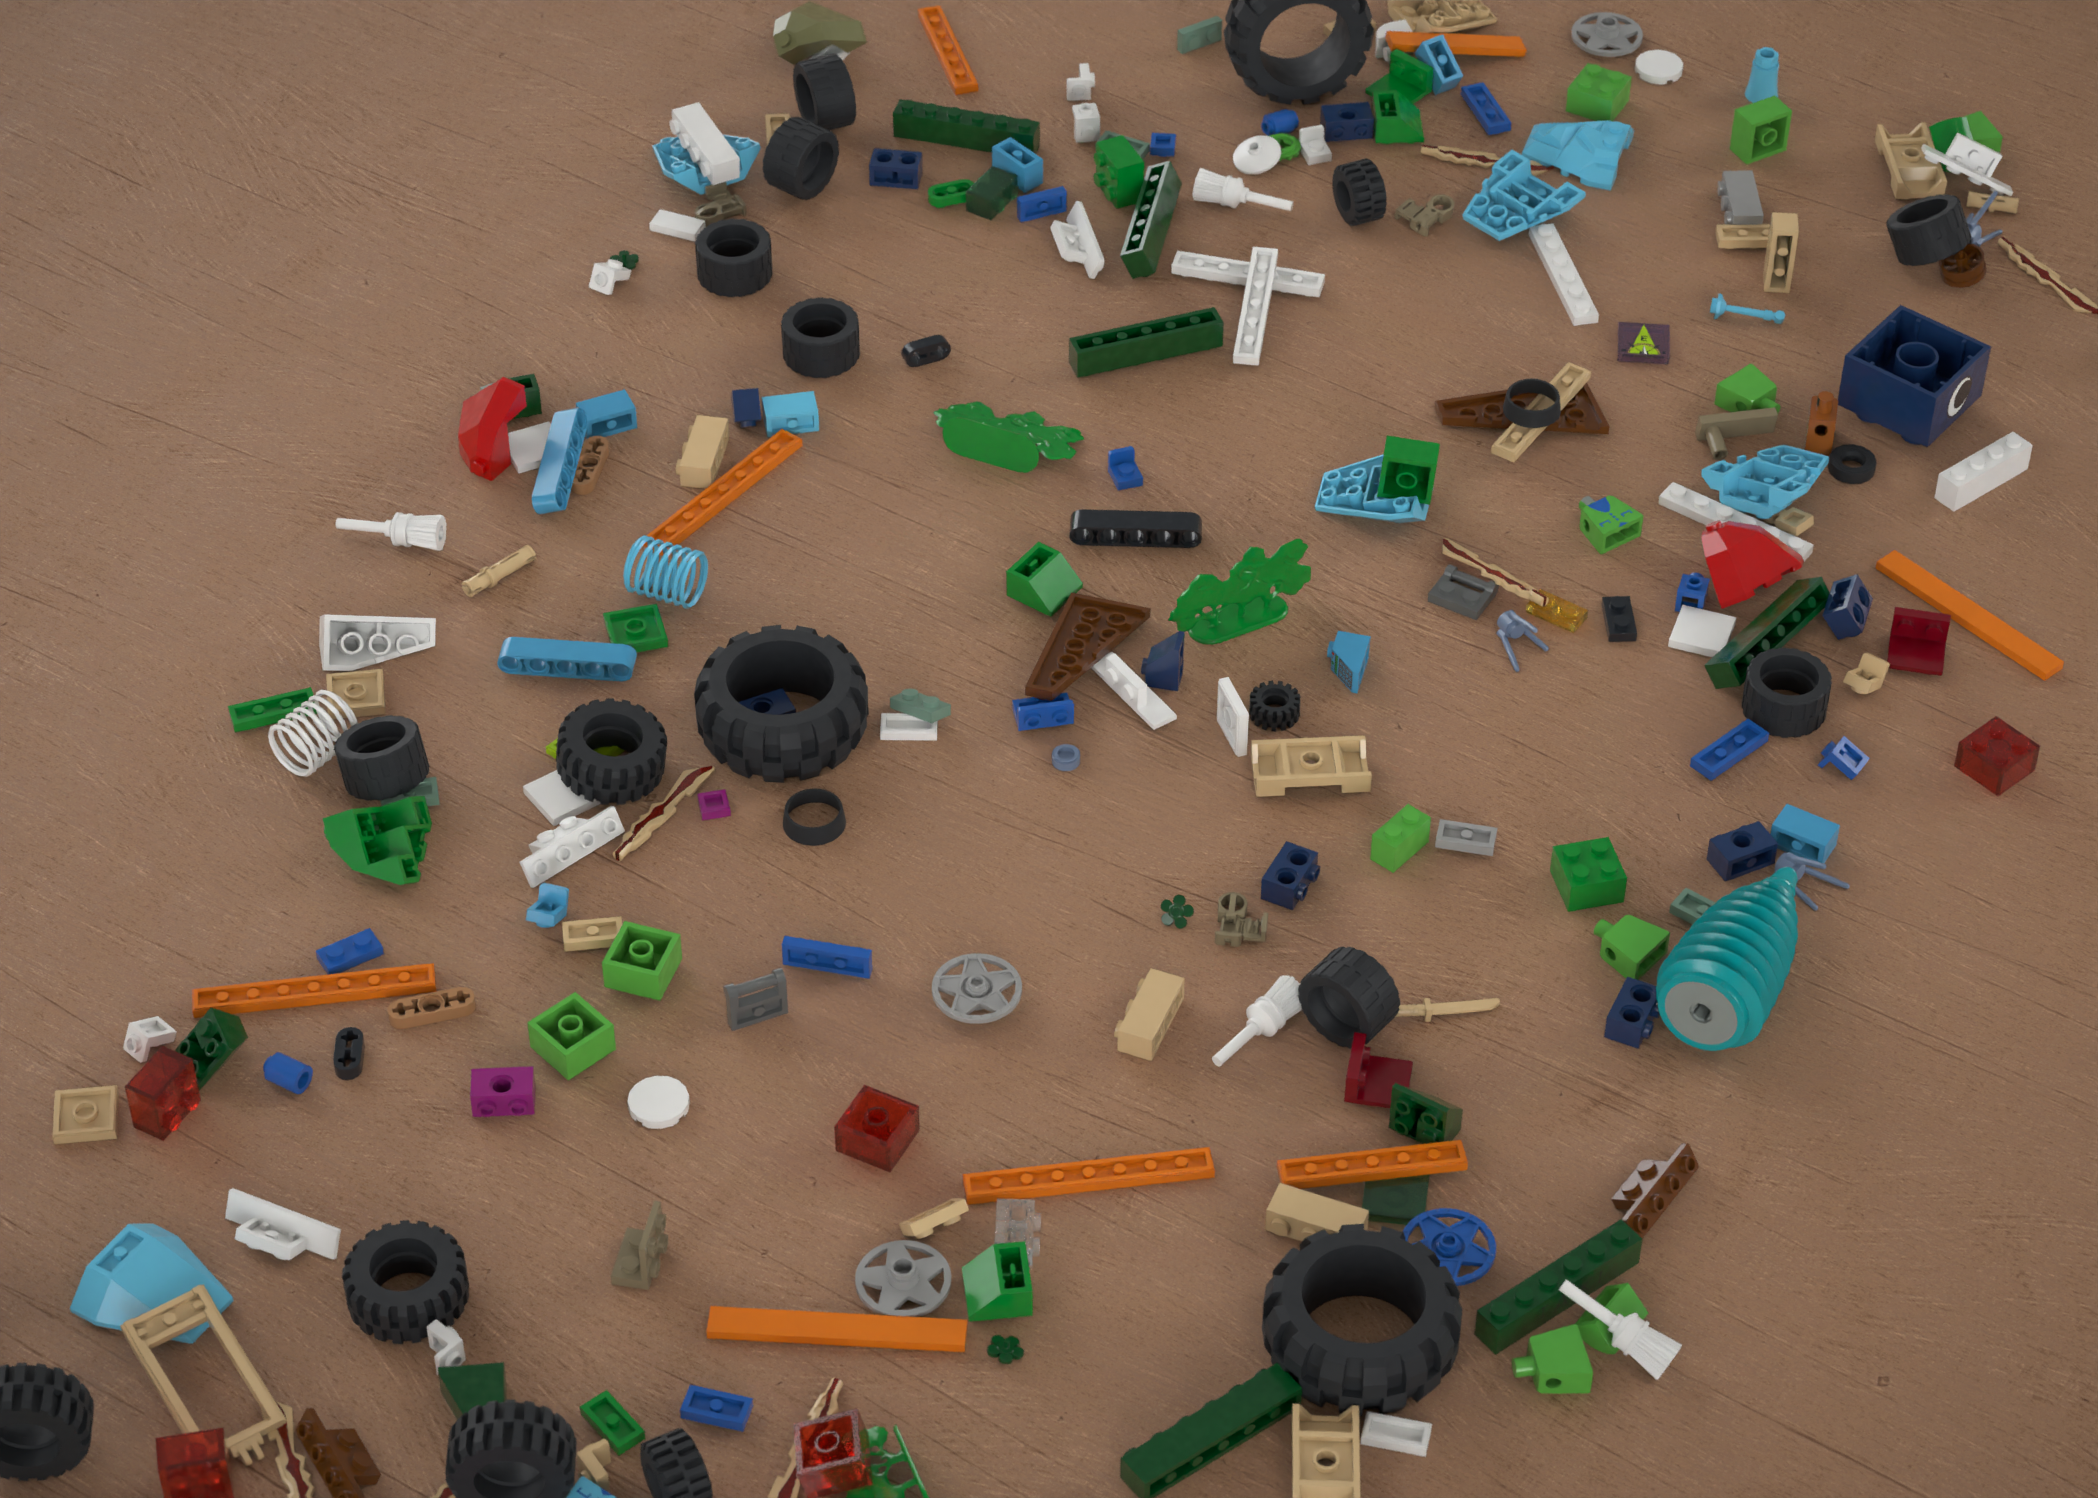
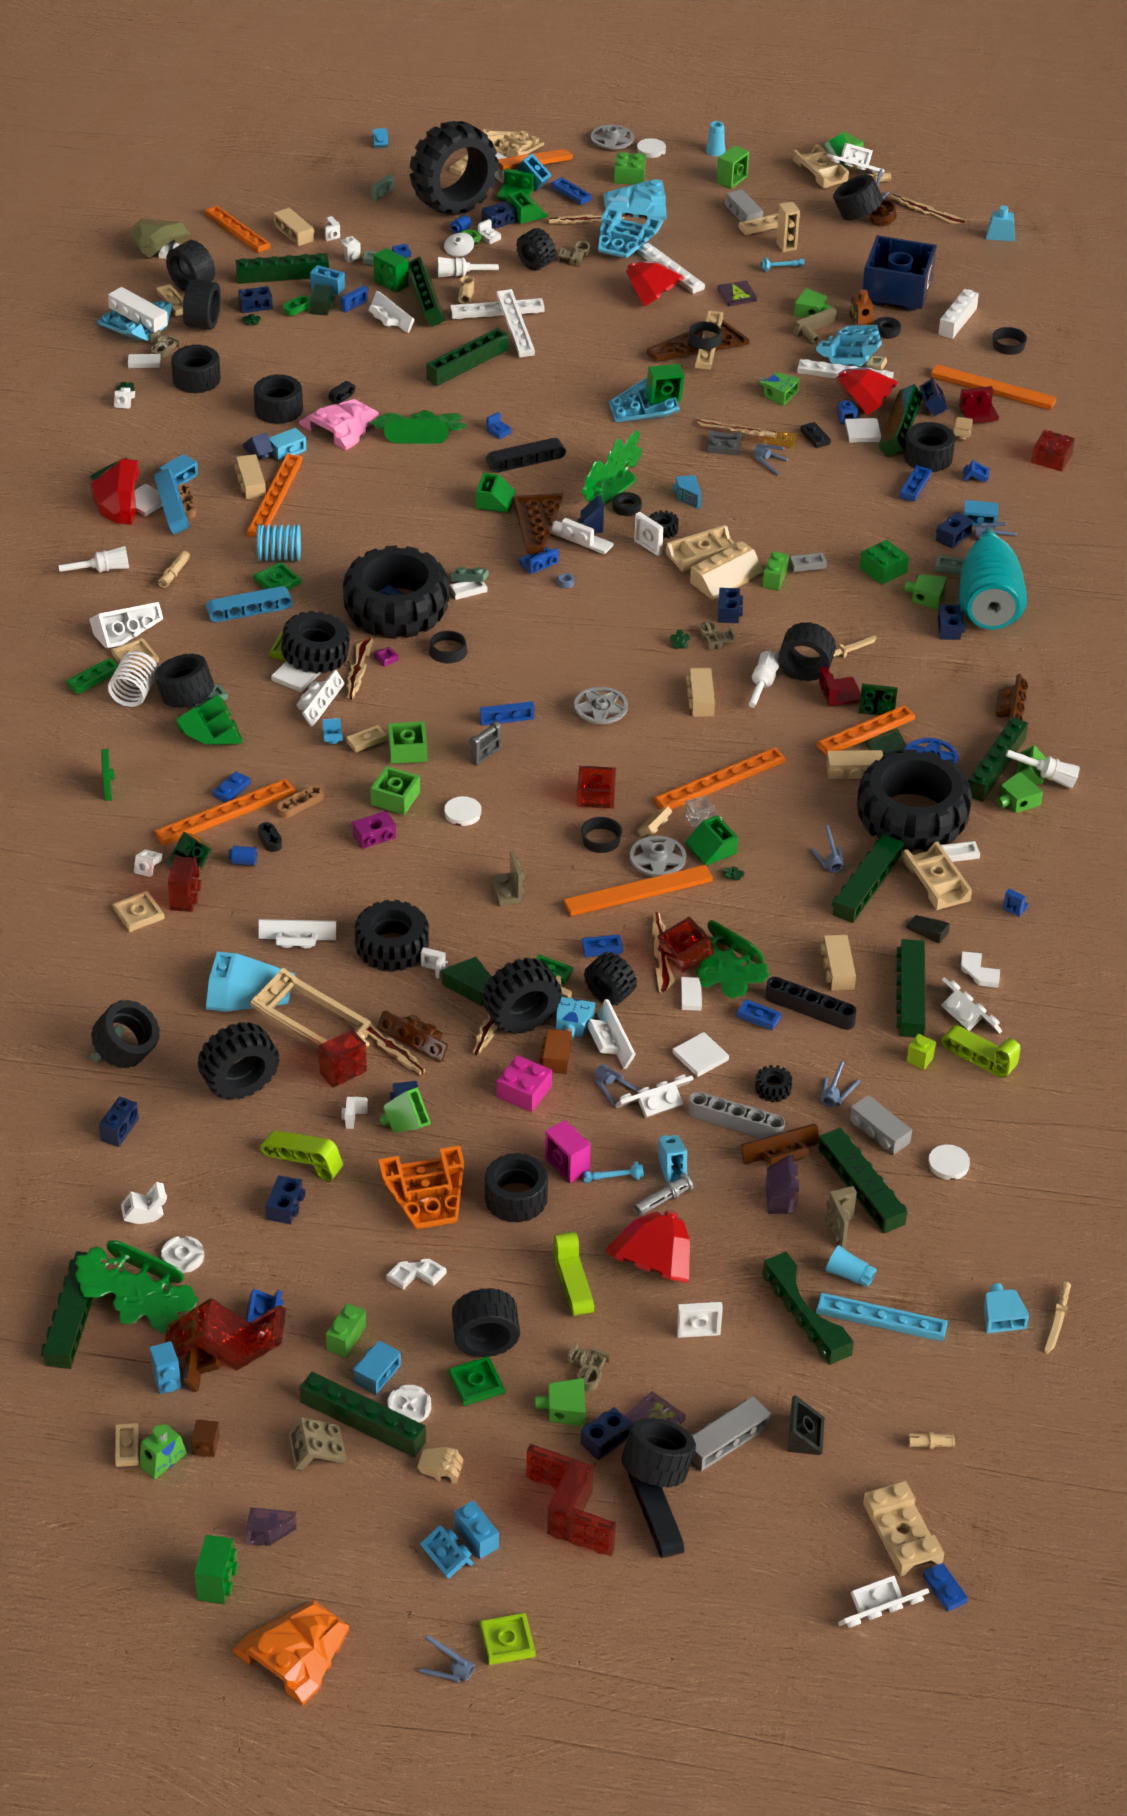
camera: 25 degrees left, 0 degrees up
(175, 877) = (107, 774): none -> green plate
(838, 1190) = (601, 823): none -> black tyre
(875, 199) = (251, 319): none -> dark green plant
(898, 398) = (345, 420): none -> bright pink wedge
(1028, 66) = (293, 226): none -> tan brick
(1175, 1385) = (834, 862): none -> sand blue plant
(1219, 232) = (466, 289): none -> tan piece
(1240, 666) = (630, 498): none -> black tyre
(1323, 813) = (726, 569): none -> tan slope
(1510, 286) = (652, 279): none -> red brick
(2048, 525) = (1009, 332): none -> black tyre

